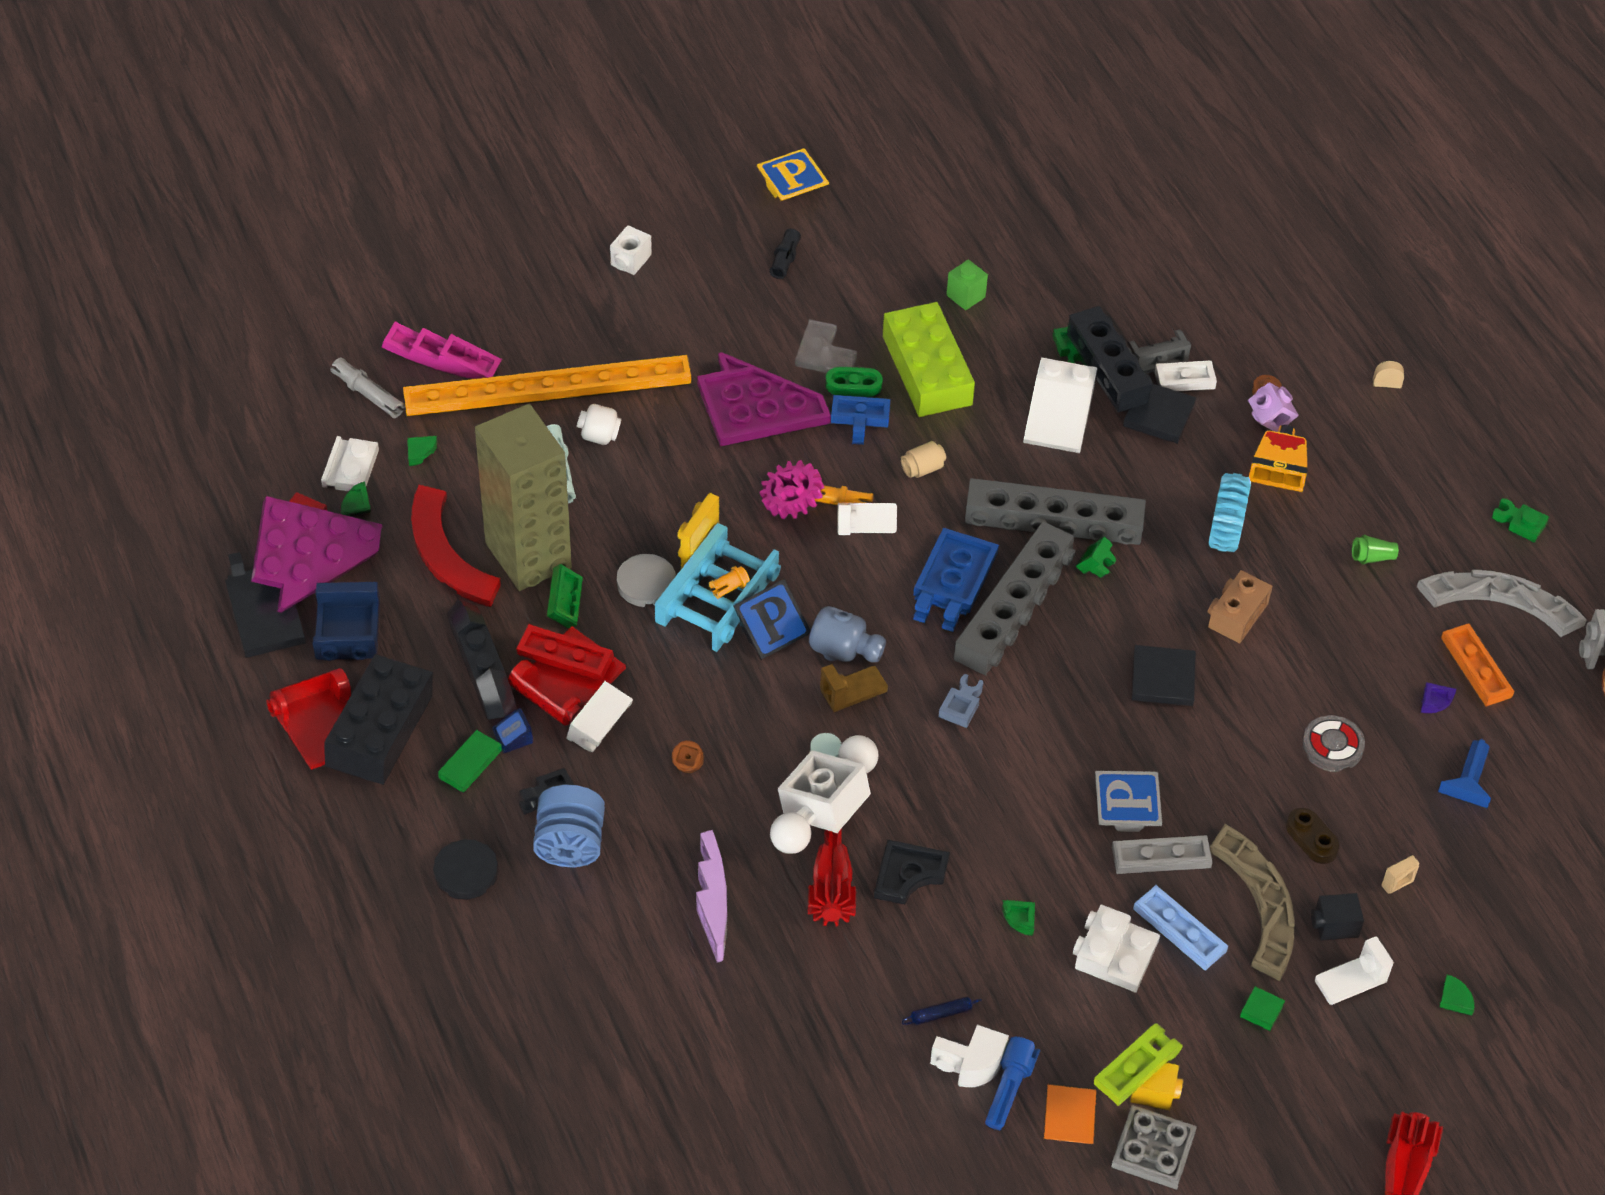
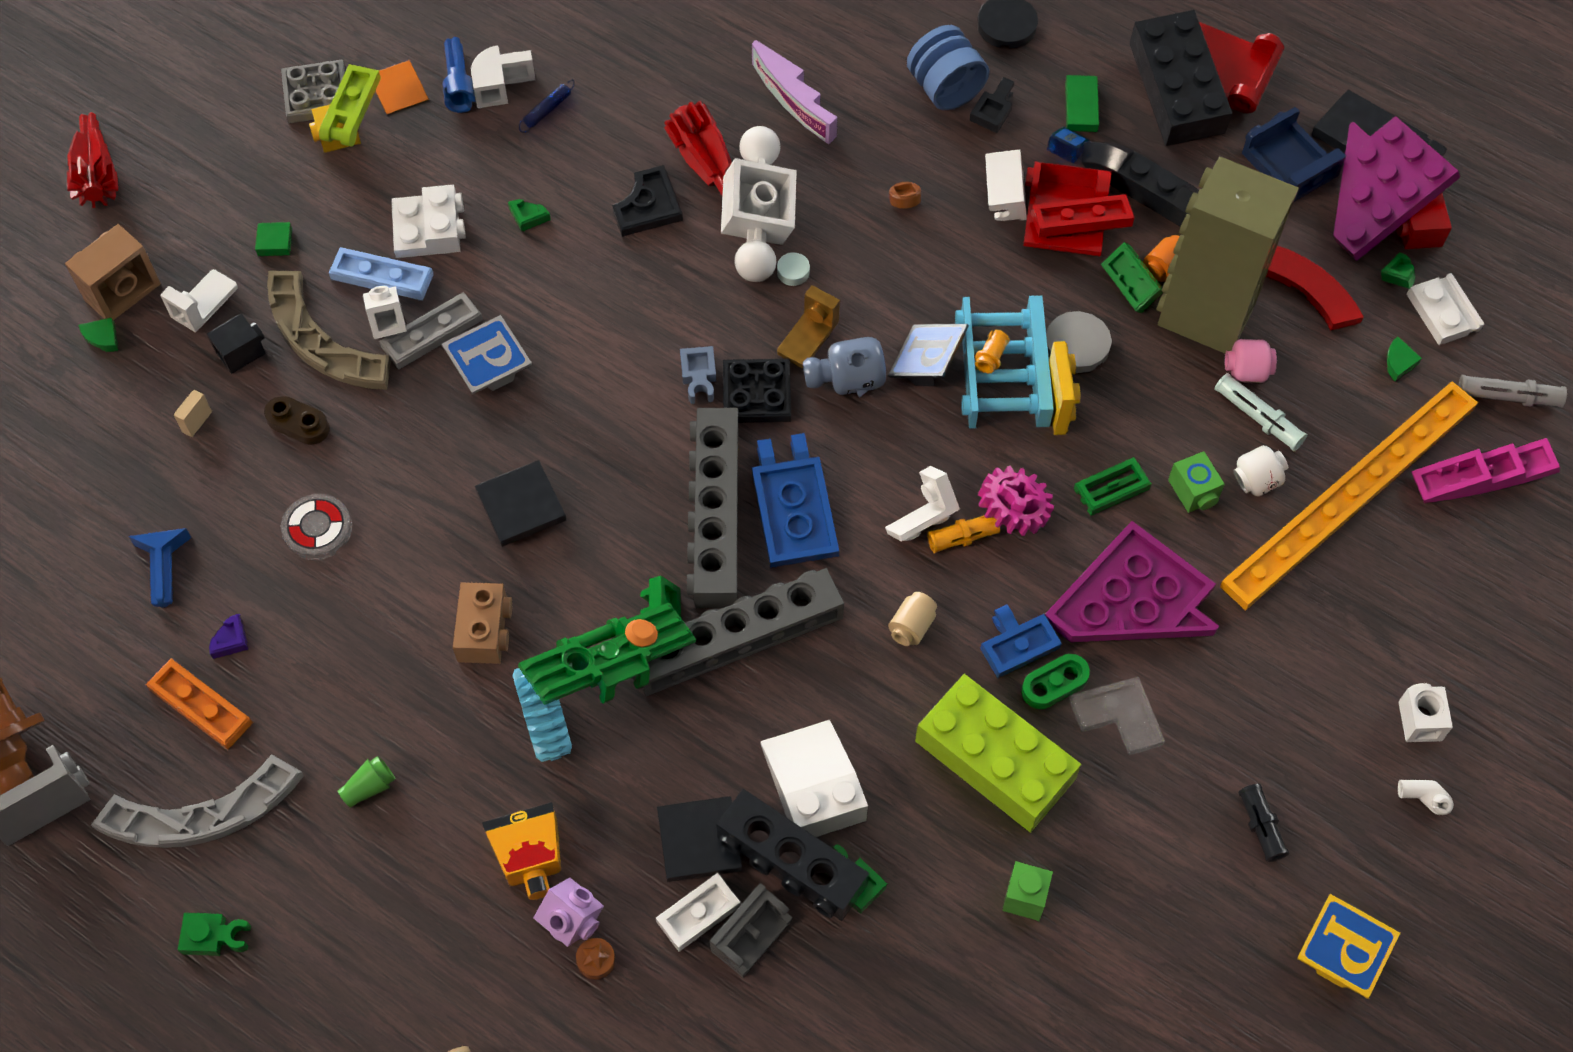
camera: 150 degrees right, 10 degrees up
(525, 597) = (1160, 258): none -> orange brick
(651, 441) = (1196, 482): none -> bright green brick
(666, 219) = (1429, 793): none -> white arm
(707, 480) = (1097, 506): none -> green tile
(923, 672) = (758, 389): none -> black tile
(1161, 499) = (624, 656): none -> green piece
(1198, 872) = (384, 311): none -> white brick
(1427, 1019) = (113, 273): none -> medium nougat brick

